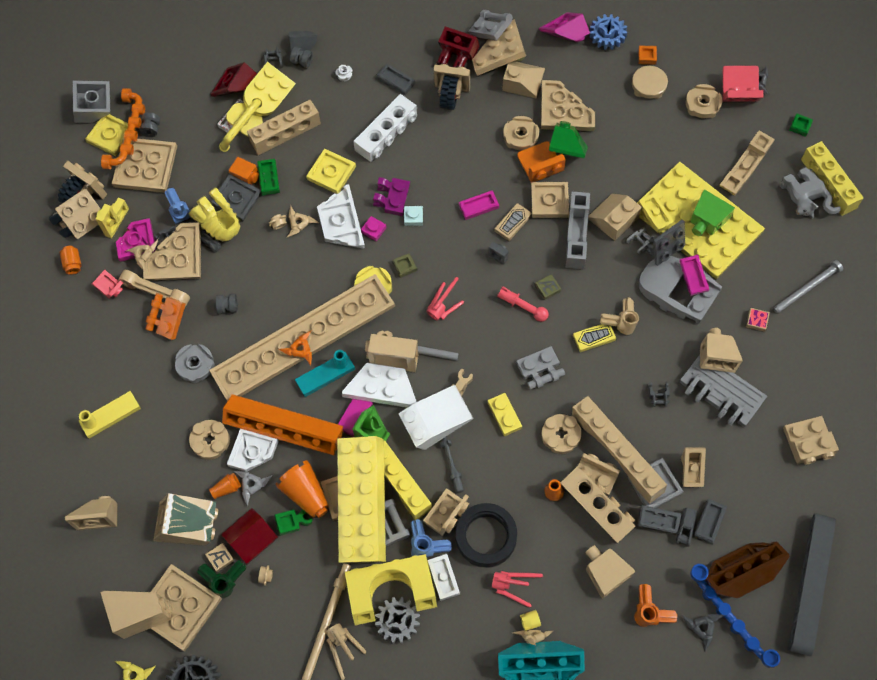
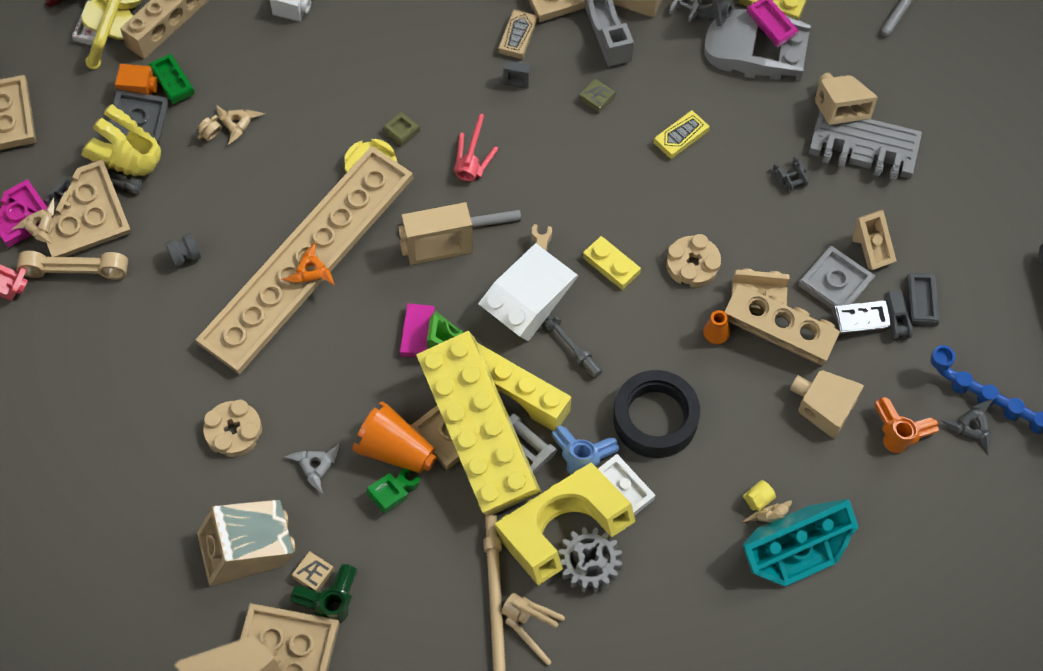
camera: 25 degrees left, 5 degrees down
(94, 514) = (113, 580): tan slope -> none
(108, 415) = (64, 459): light yellow piece -> none
(170, 317) = (112, 292): orange plate -> none
(177, 209) = (64, 153): medium blue axle -> none
(195, 373) = (174, 353): light grey plate -> none
(225, 486) = (282, 478): orange cone -> none
(249, 536) = (342, 529): dark red slope -> none
(251, 450) = (298, 420): white plate -> none
(265, 575) = (386, 570): tan plate -> none
(282, 424) = (326, 372): orange brick -> none
(325, 373) = (355, 292): teal piece -> none
(331, 171) = (253, 46): light yellow plate -> none
(340, 220) = (293, 101): white wing -> none
(373, 228) = (340, 98): dark pink plate -> none
(381, 385) = (437, 281): white wing -> none
(396, 198) = (354, 51): magenta plate -> none
(413, 215) = (386, 67): light aqua plate -> none
(444, 512) = (594, 403): tan bracket -> none
(478, 205) = (464, 28): dark pink tile -> none
(503, 580) = (703, 461): coral plant -> none
(537, 363) = (626, 187): light grey plate -> none
(540, 314) = (601, 130): coral pin -> none
(625, 321) = (712, 102): tan axle -> none
(639, 471) = (819, 269): tan arch -> none
(747, 568) = (996, 333): reddish brown wedge -> none
(757, 319) = (868, 50): tile -> none
(810, 440) = (996, 165): tan plate -> none

